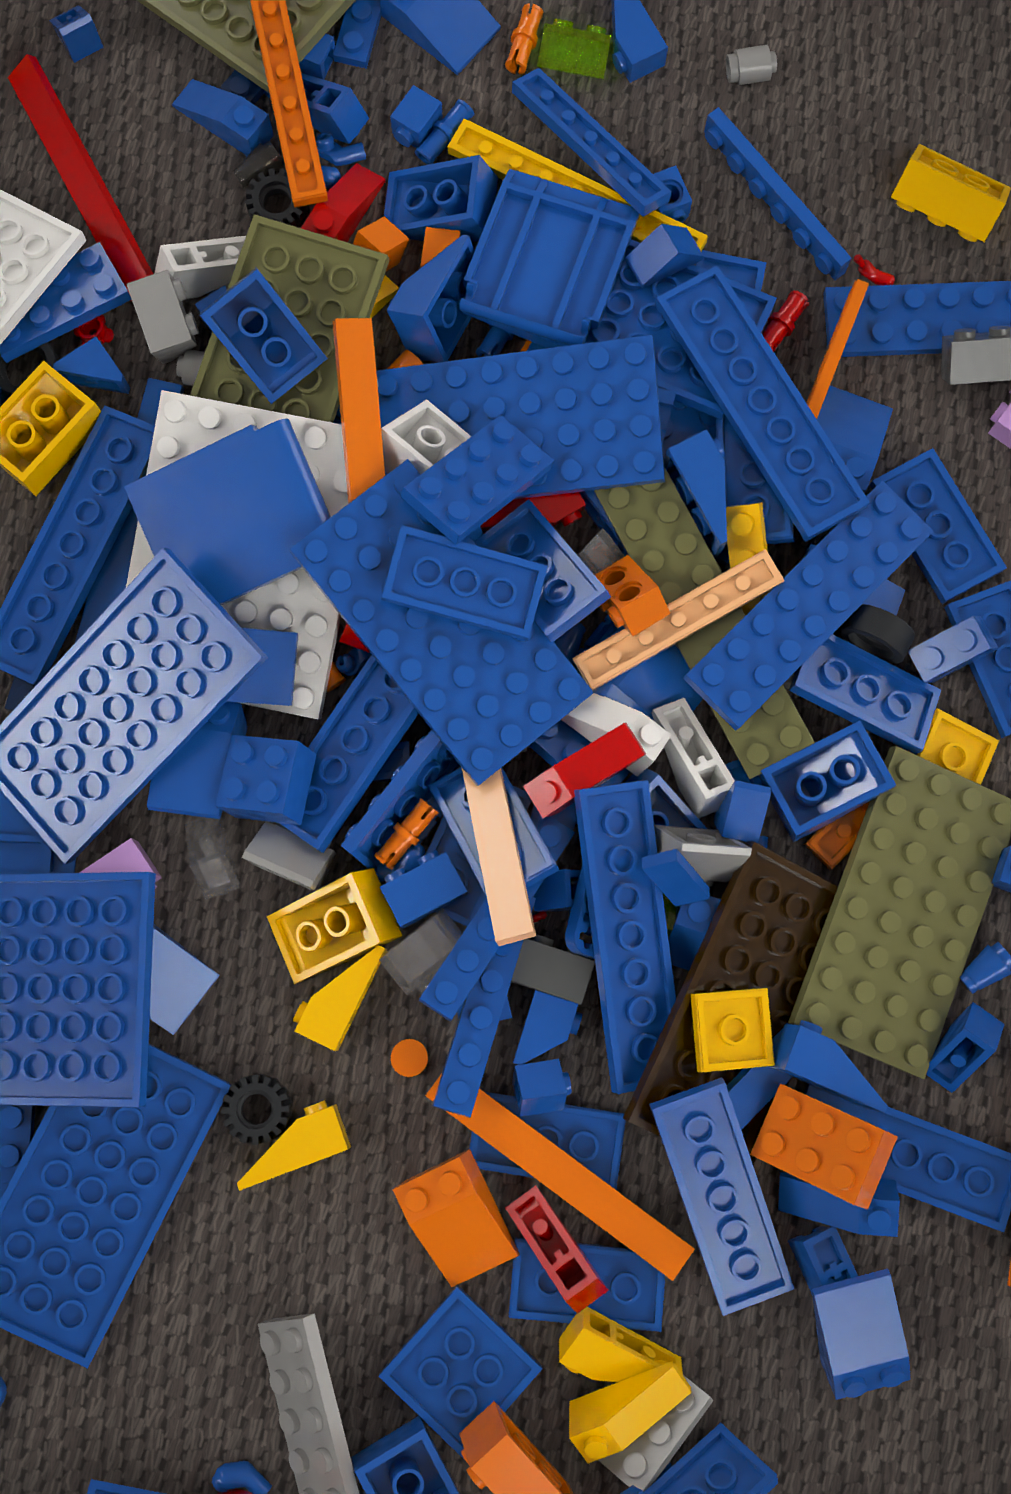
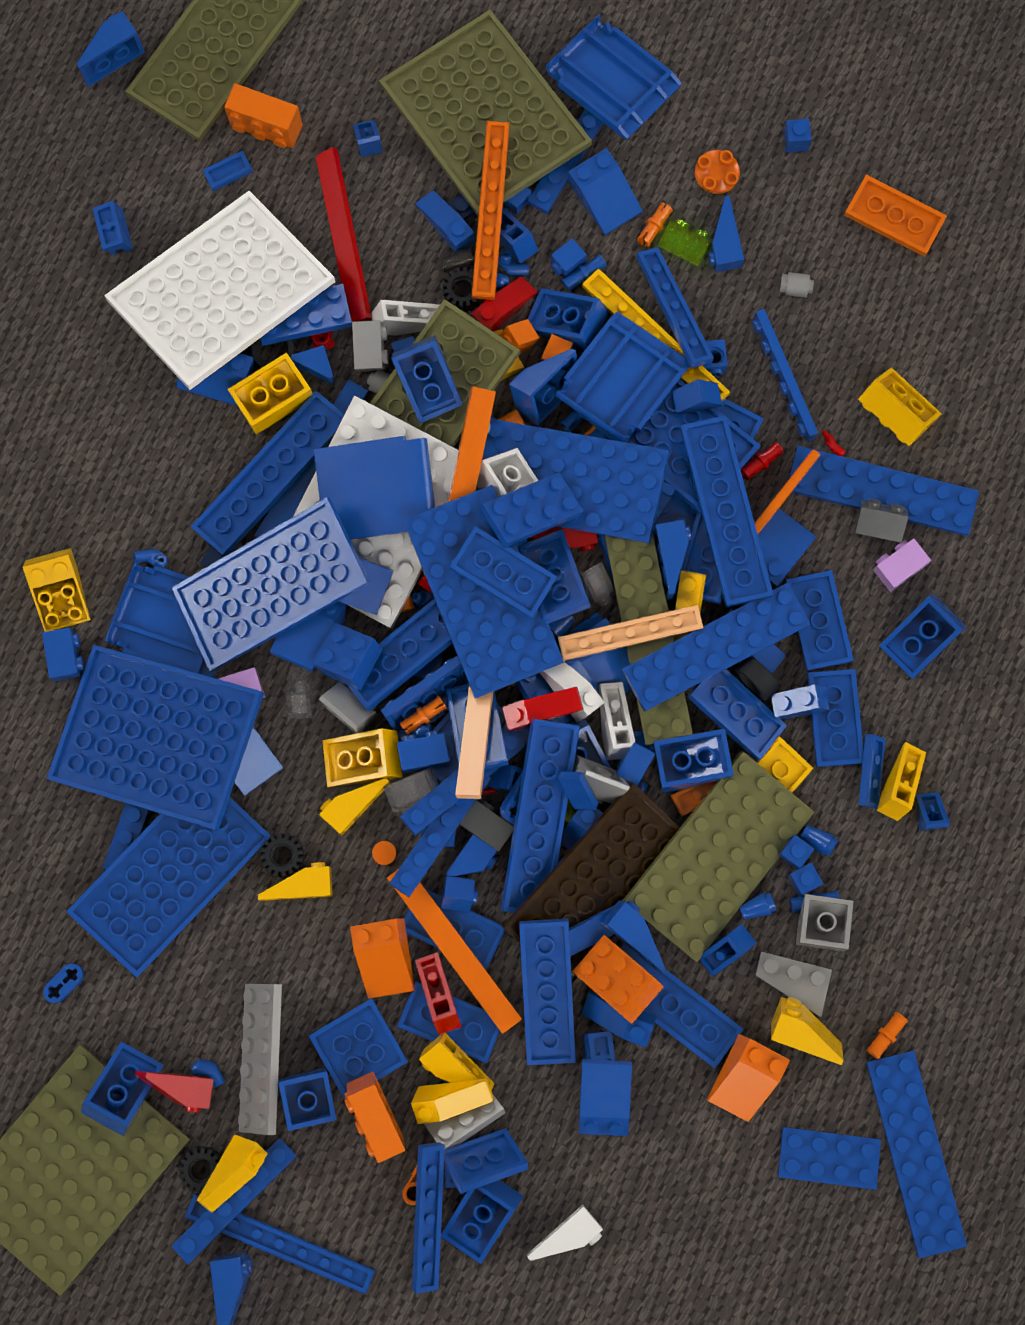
camera: 20 degrees right, 0 degrees up
(634, 596) = (605, 609): orange brick -> none
(732, 1030) = (584, 892): yellow tile -> none

